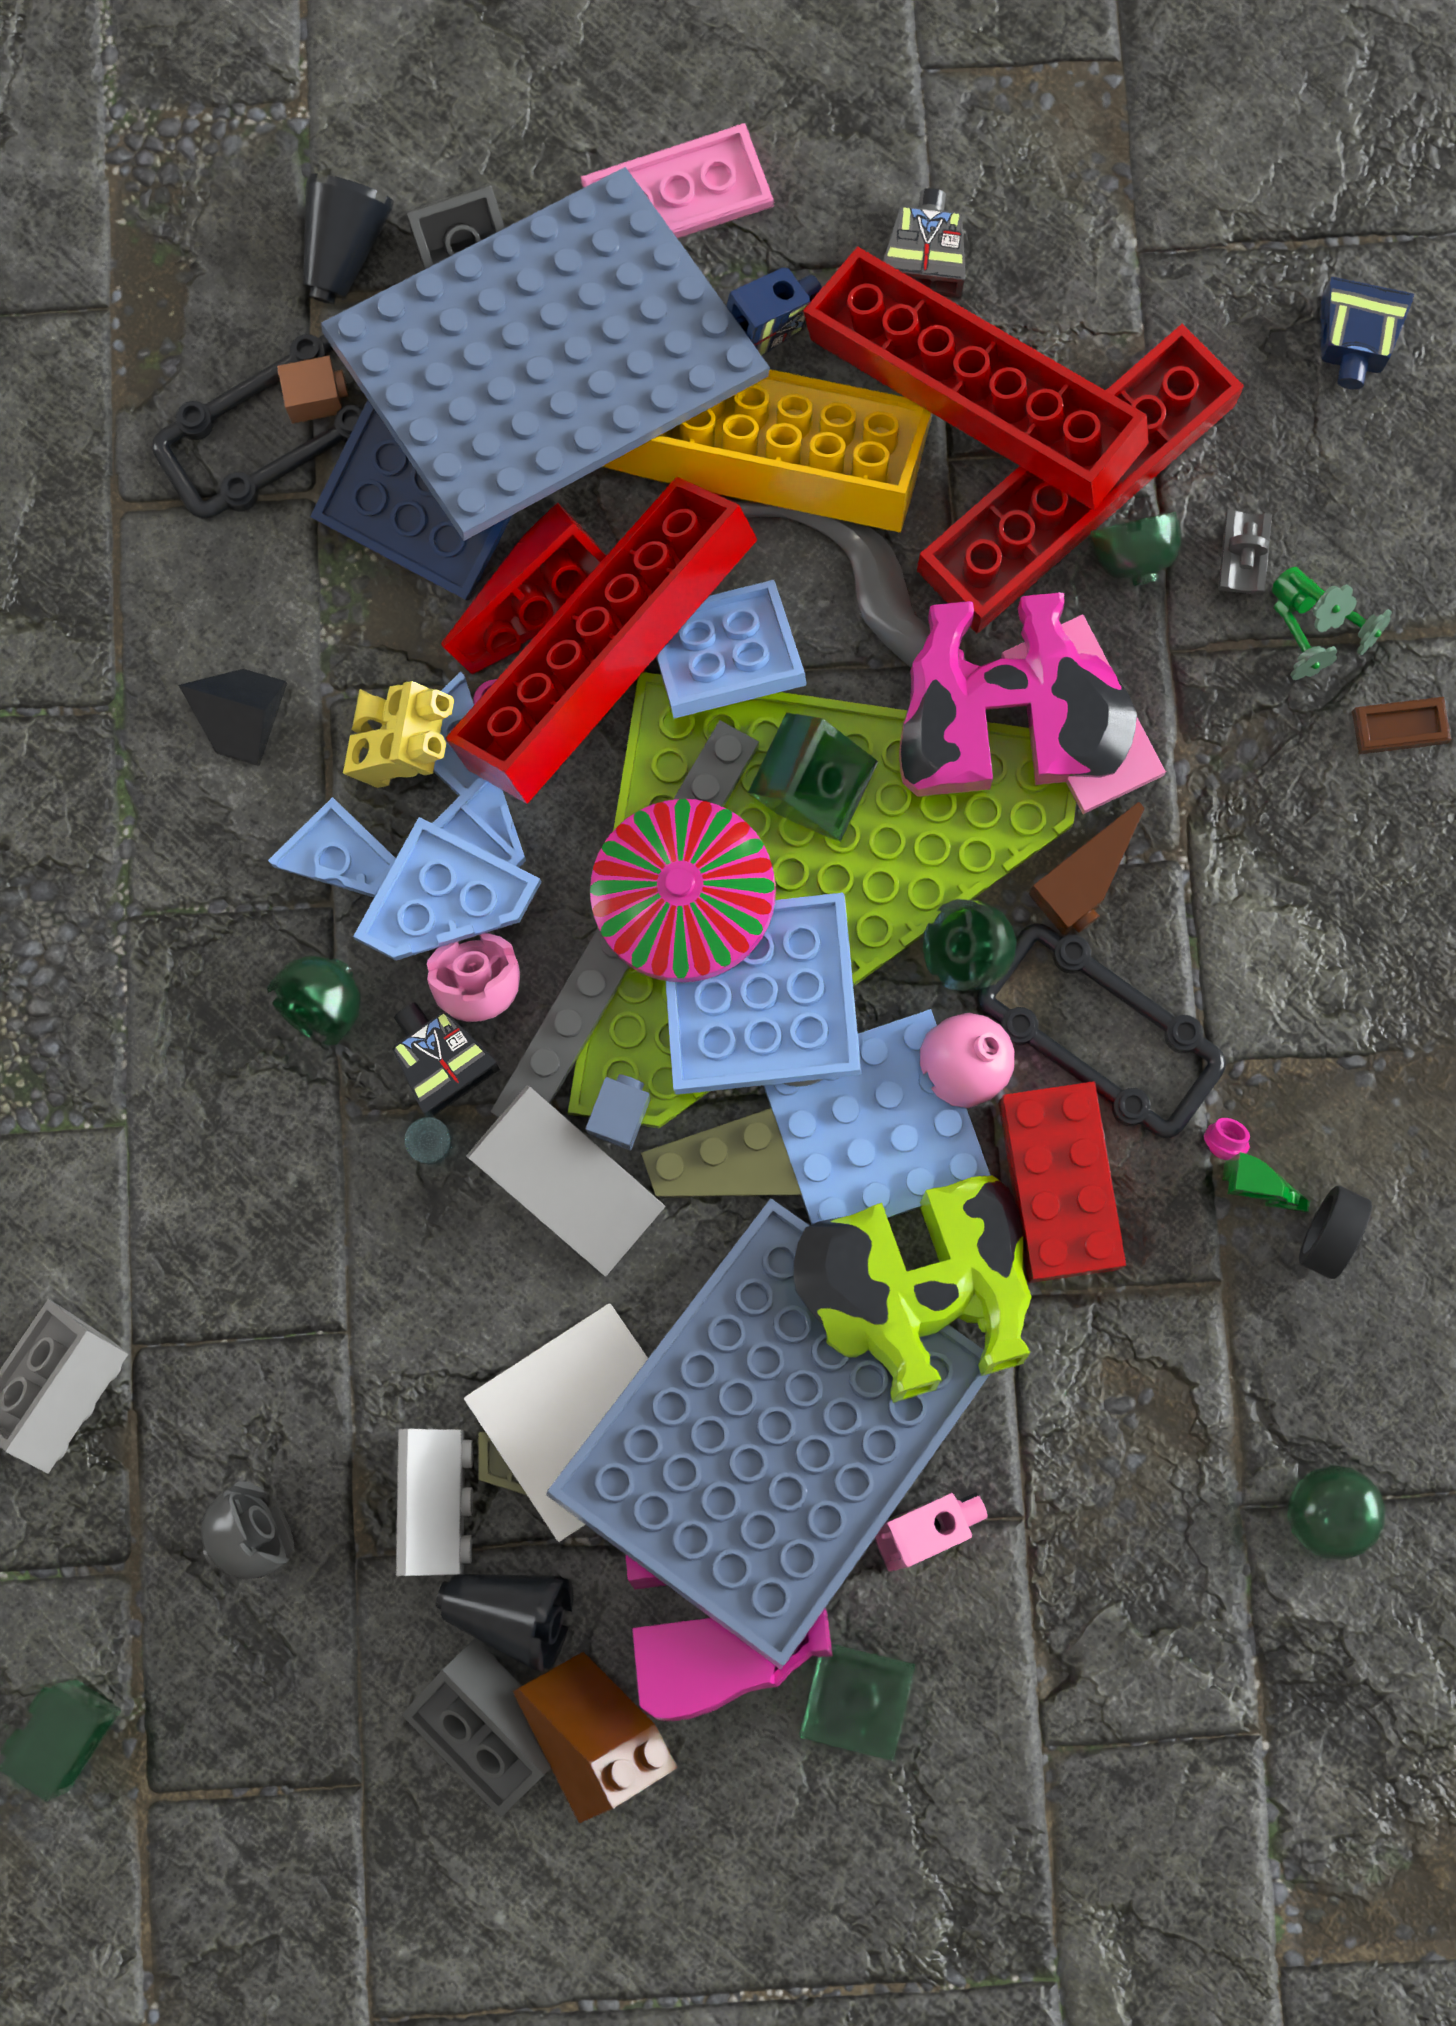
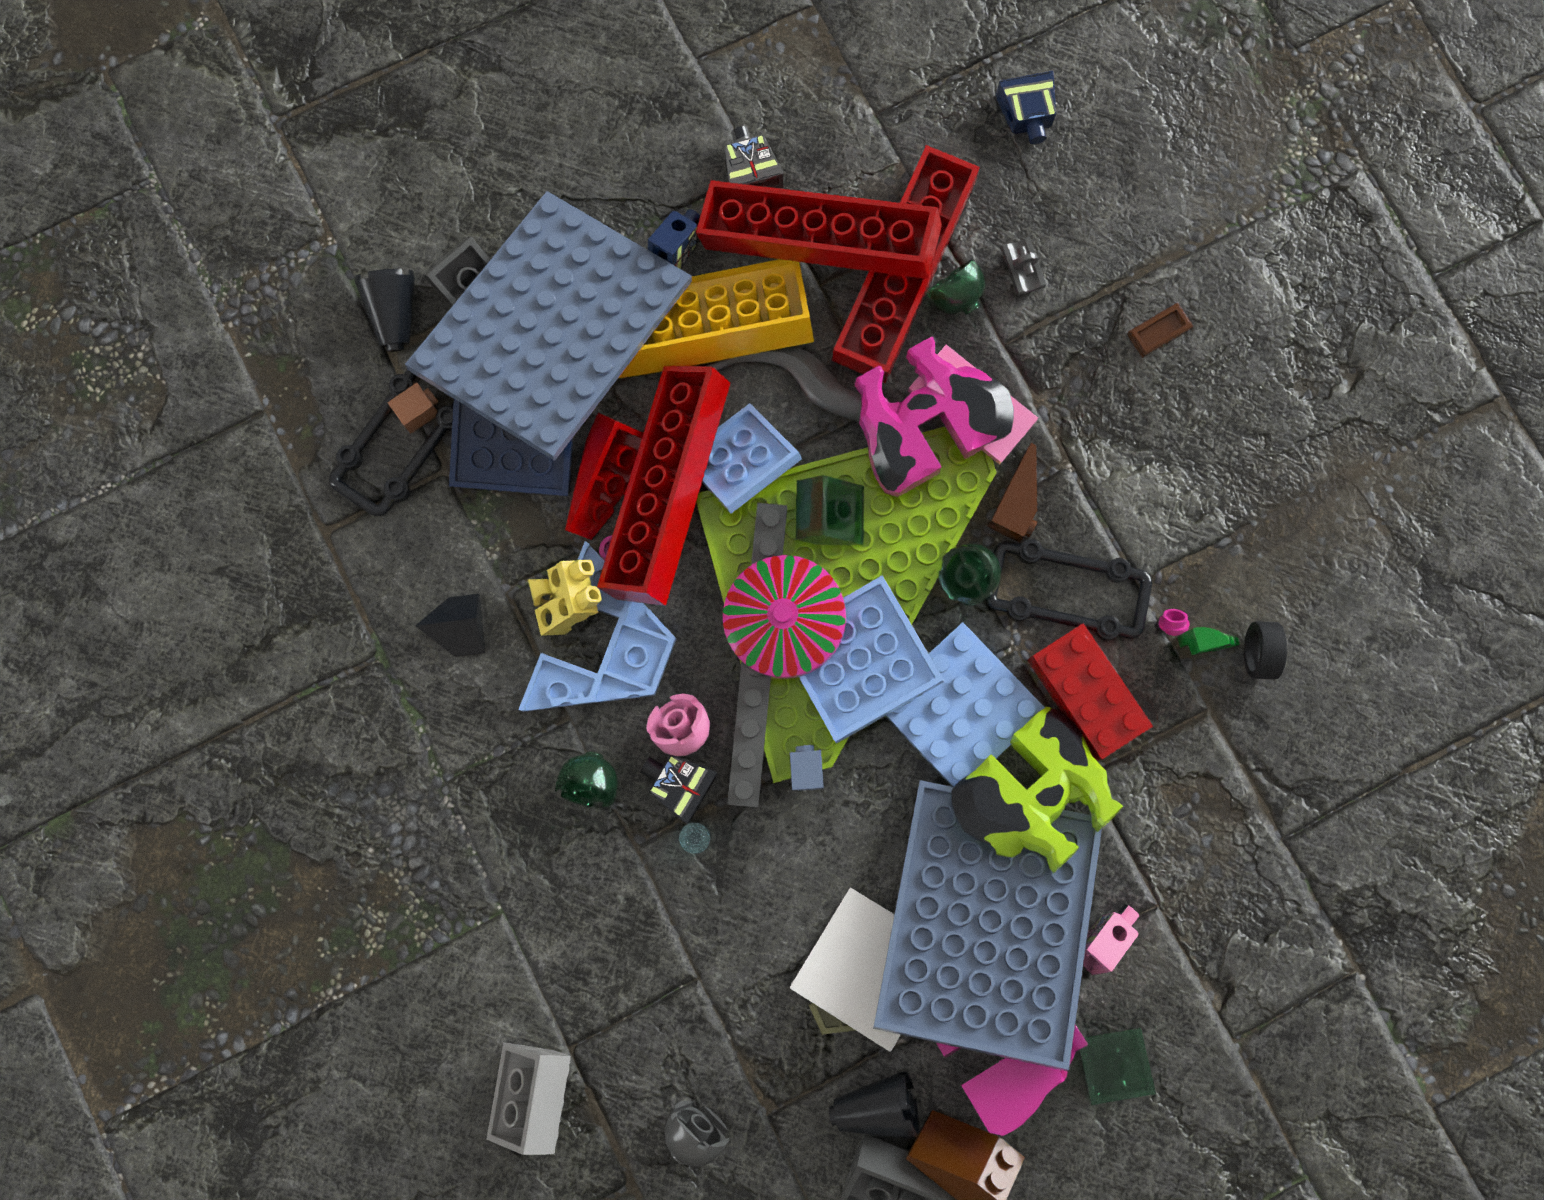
camera: 25 degrees left, 0 degrees up
(433, 1502) = (802, 1062): light grey slope -> none
(443, 894) = (636, 683): light blue plate -> none
(565, 1180) = (792, 826): light grey tile -> none
(700, 180) = (594, 180): bright pink tile -> none
(727, 1160) = (881, 769): olive wing -> none
(967, 1059) = (1000, 643): bright pink cylinder -> none
(1335, 604) = (1066, 277): plant -> none
(1336, 1512) = (1340, 817): clear green cylinder -> none

